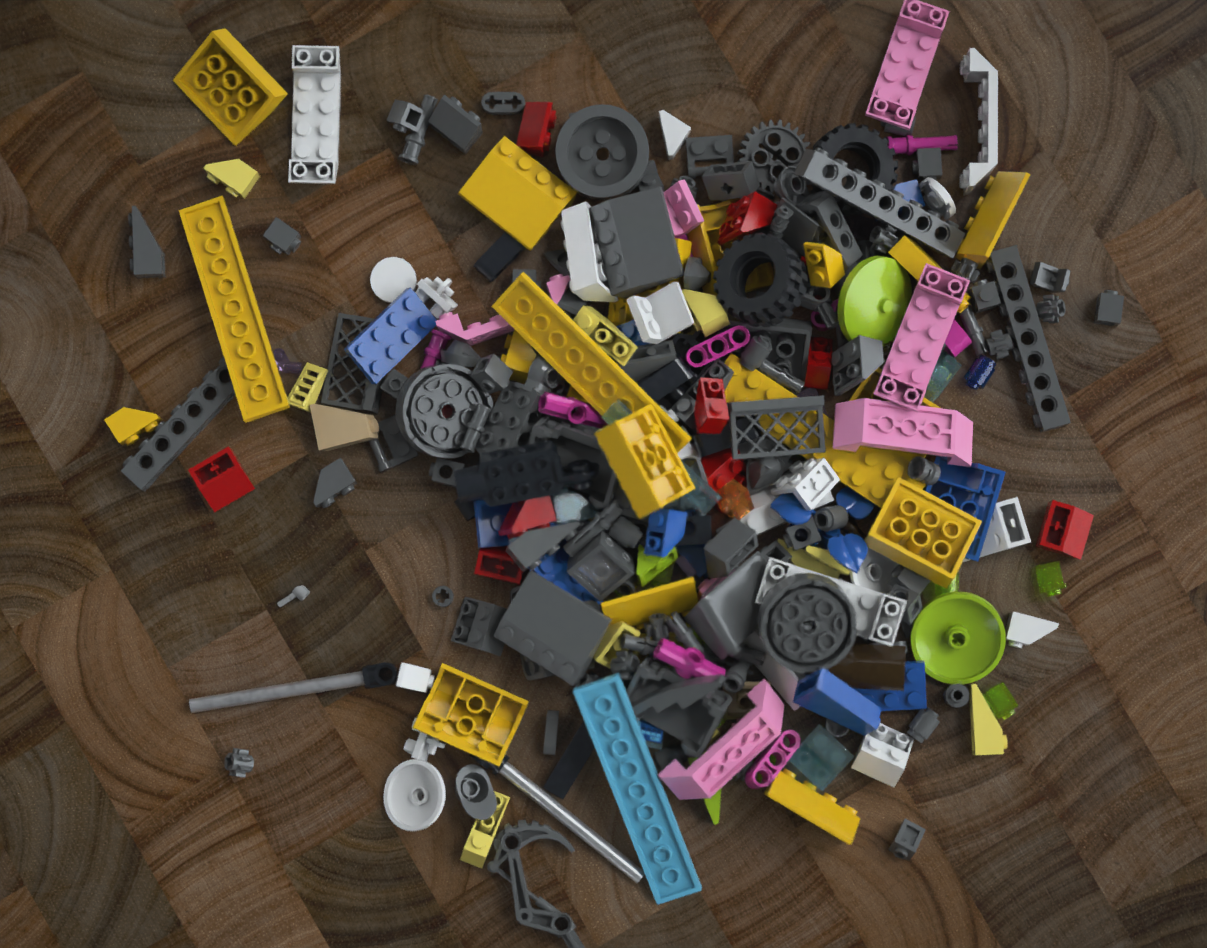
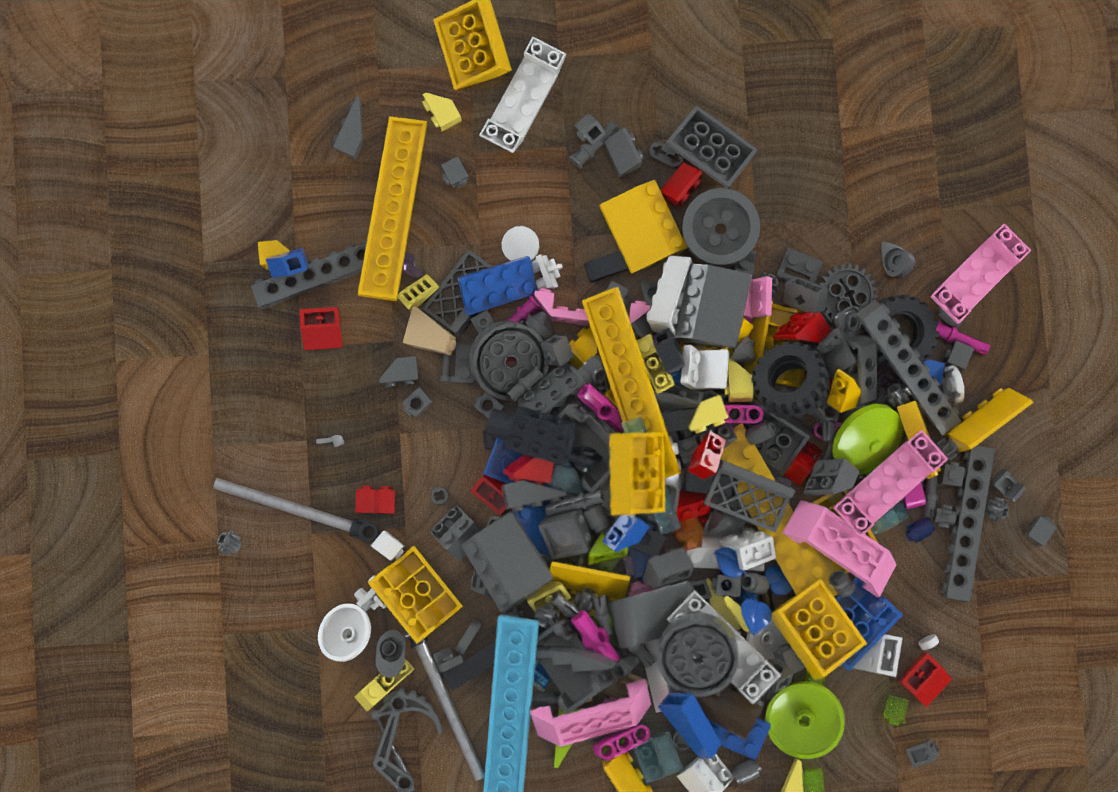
camera: 25 degrees right, 0 degrees up
(149, 426) = (287, 263): none -> blue slope
(363, 498) = (417, 394): none -> dark grey brick
(375, 637) = (375, 501): none -> red brick
(539, 769) = (445, 659): none -> dark grey bracket
(549, 69) = (712, 147): none -> dark grey slope
(613, 313) = (669, 351): none -> black slope
(673, 132) = (780, 239): white slope -> none
(688, 359) = (708, 412): none -> light yellow slope
(781, 377) = (770, 459): dark grey pin -> none
(810, 93) = (897, 260): none -> dark grey piece
(948, 695) = (777, 757): dark grey brick -> none
(978, 69) = (1031, 304): white slope -> none
(1026, 629) = (859, 739): white slope -> none
(1049, 488) = (928, 642): none -> white tile
(1101, 609) = (923, 753): none -> dark grey bracket

